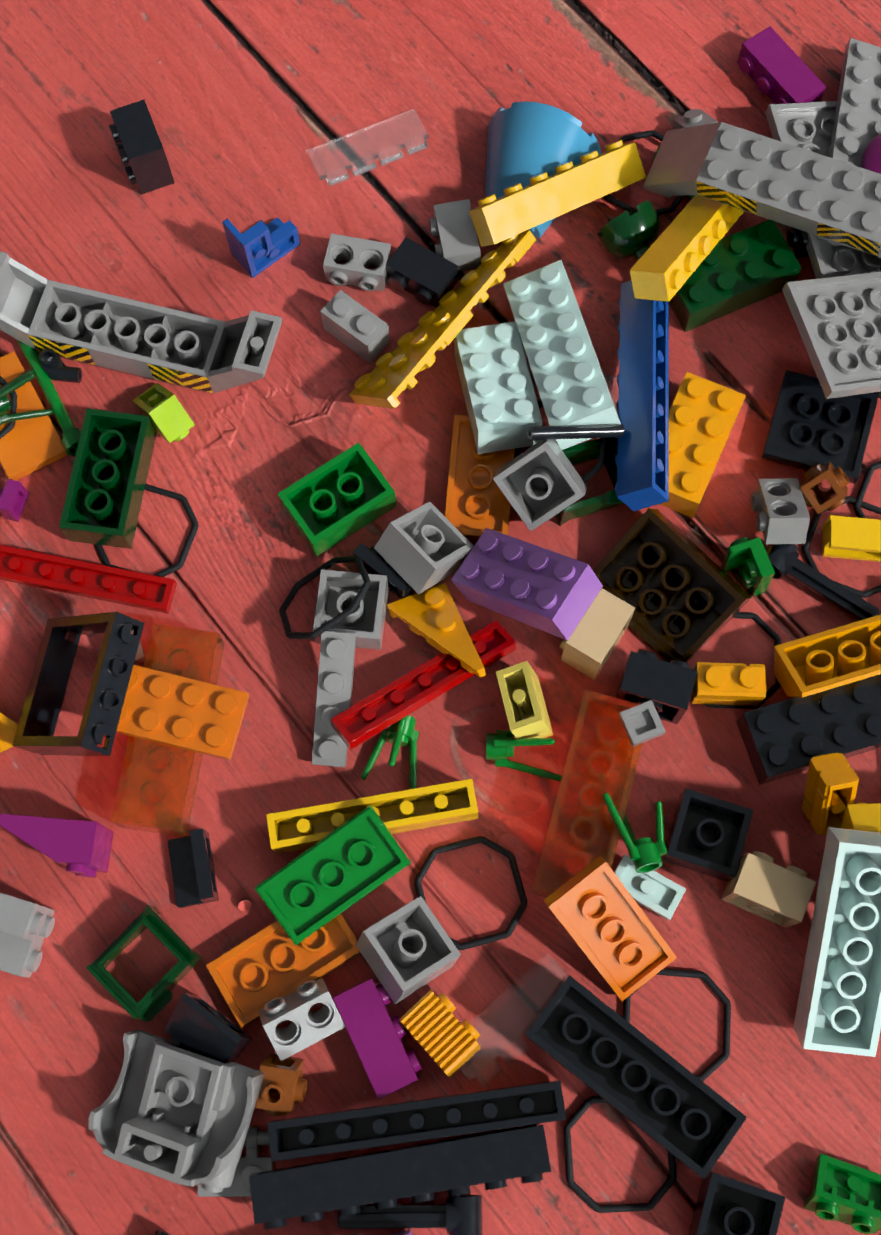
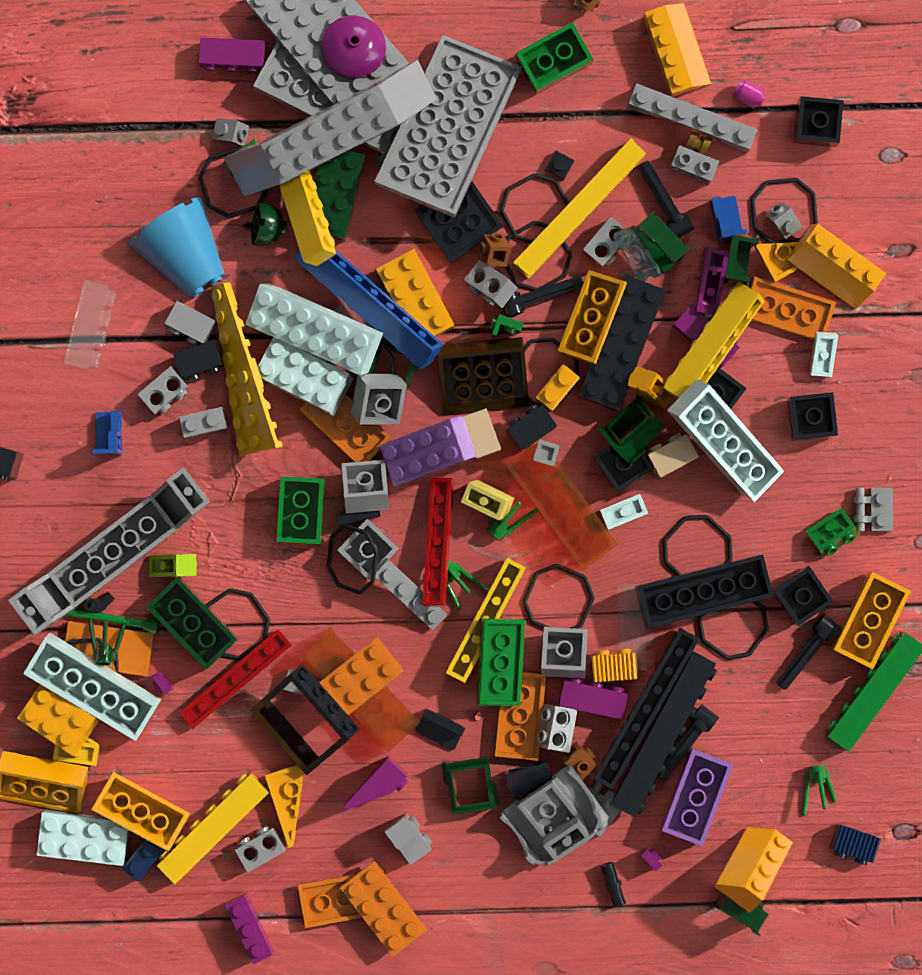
camera: 60 degrees left, 15 degrees up
(439, 621) = (411, 509): light orange wing -> none
(556, 194) = (215, 250): yellow brick -> none
(575, 432) = (370, 363): black piece -> none
(610, 928) = (631, 548): orange plate -> none
(643, 852) = (608, 502): green plant -> none
(760, 813) = (634, 443): none -> dark green piece

